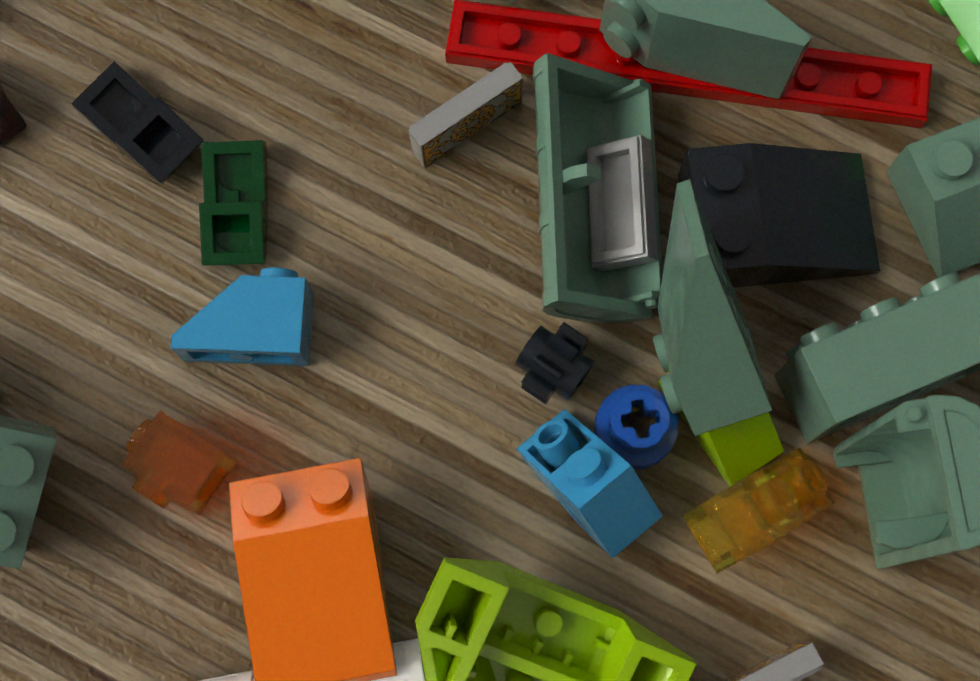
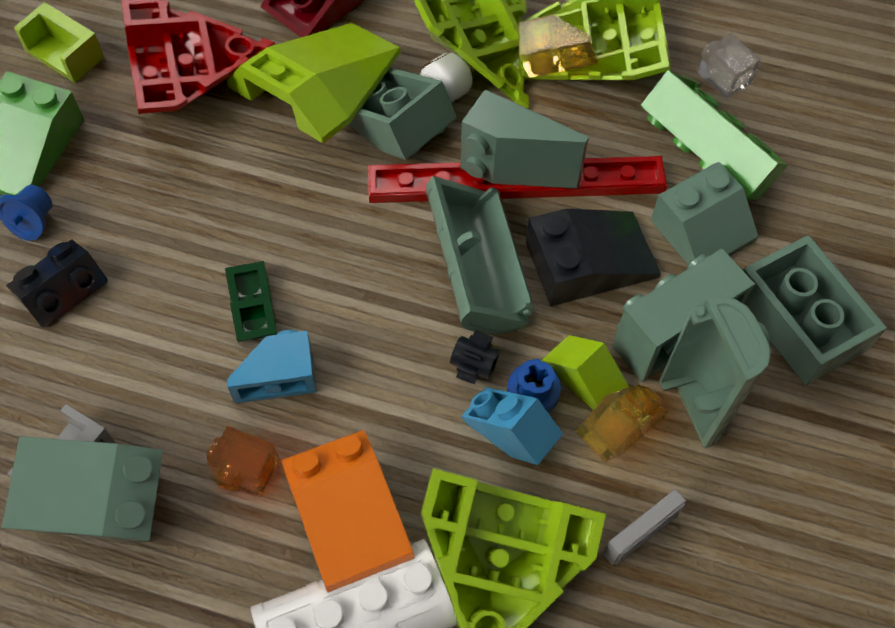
camera: 15 degrees left, 15 degrees down
(137, 123) = (180, 267): black slope -> none
(466, 114) = (388, 226): light grey tile -> none
(622, 205) = (497, 260): light grey tile -> none
(703, 328) = (565, 317): sand green slope -> none

